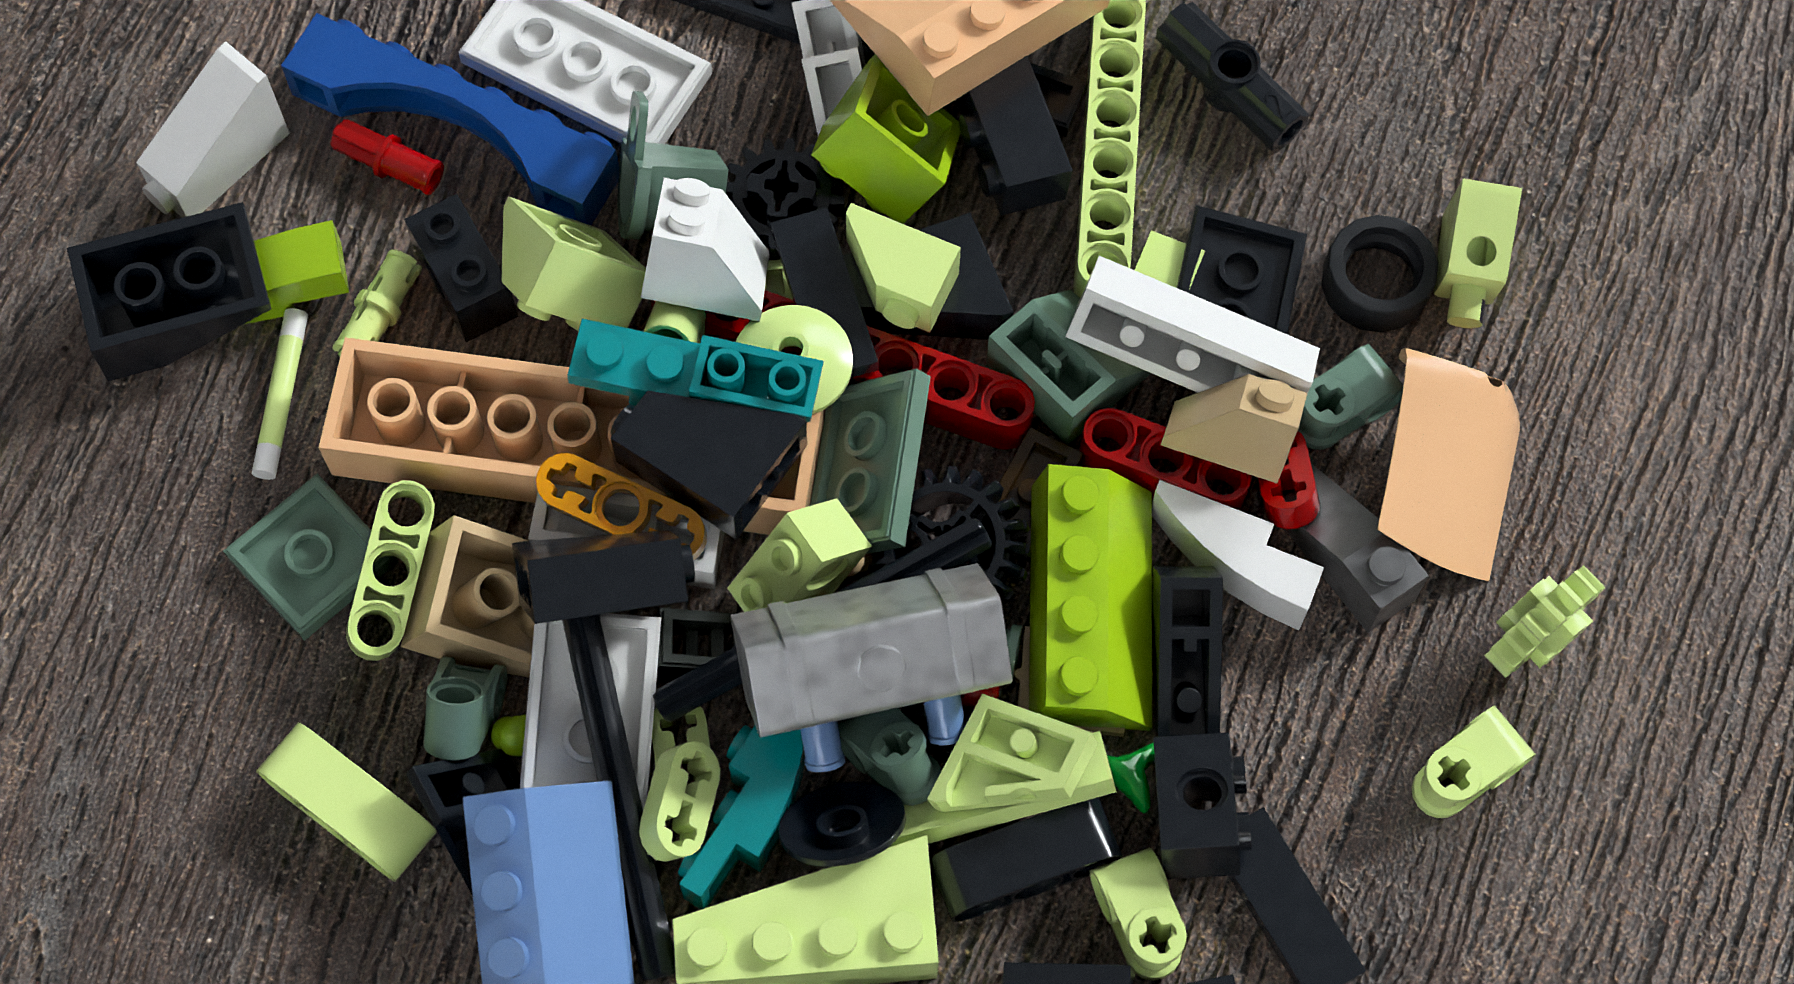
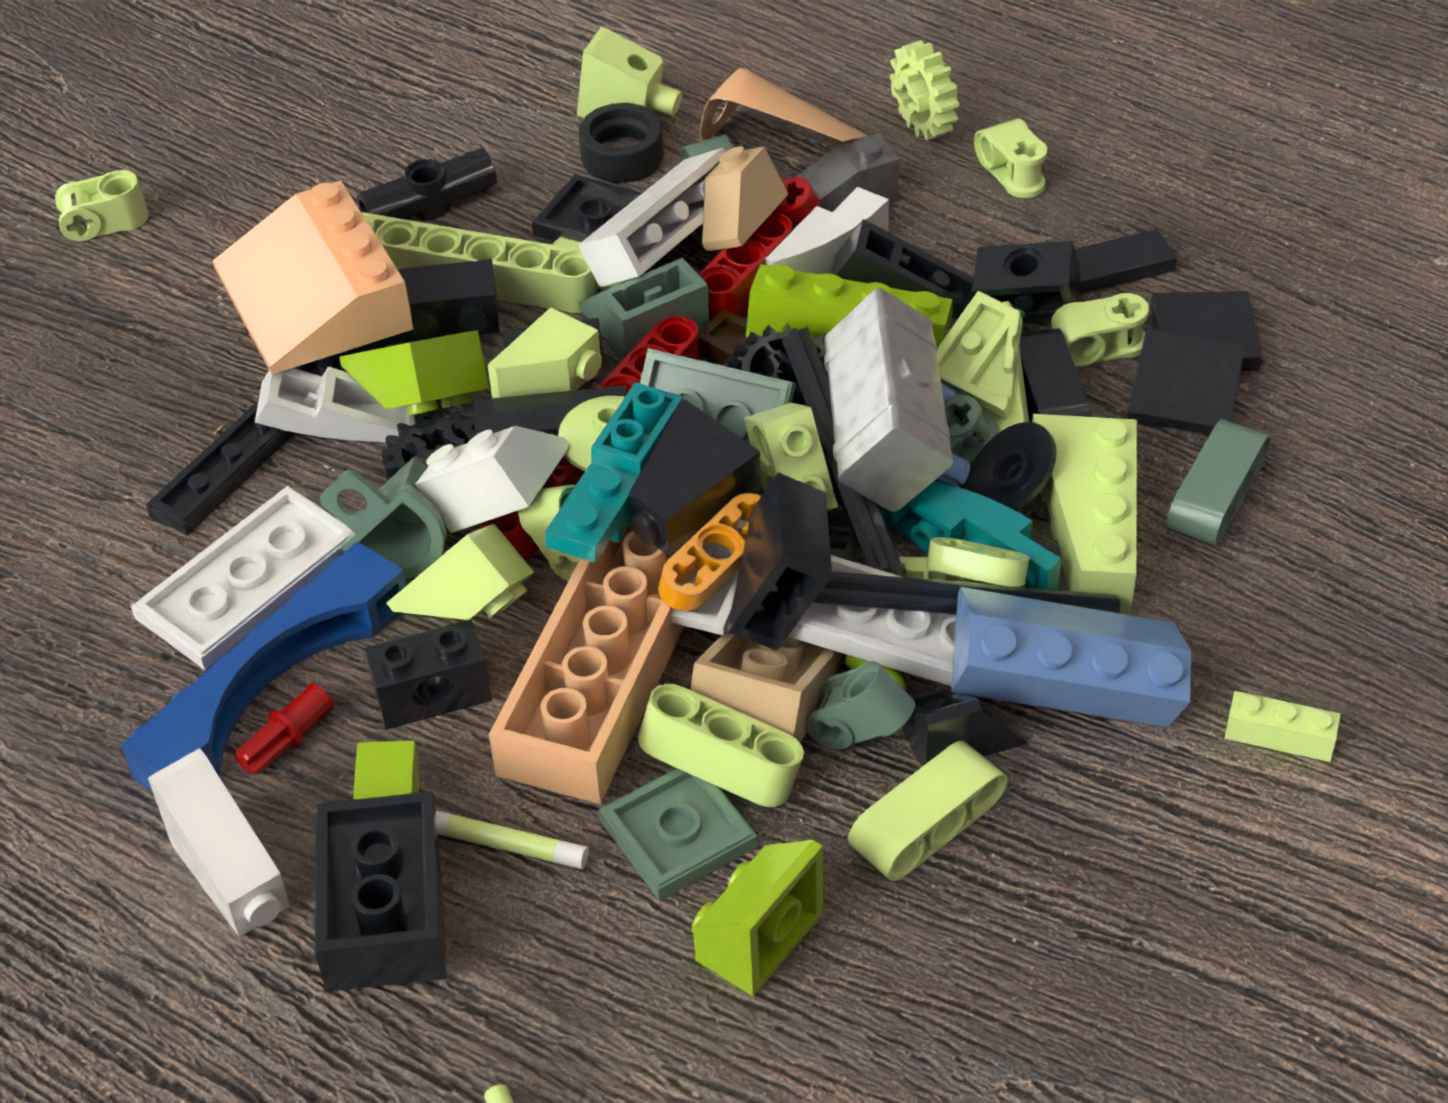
camera: 75 degrees left, 20 degrees down
(180, 648) = (761, 914): none -> lime slope
(380, 302) = (469, 761): yellowish green pin -> none

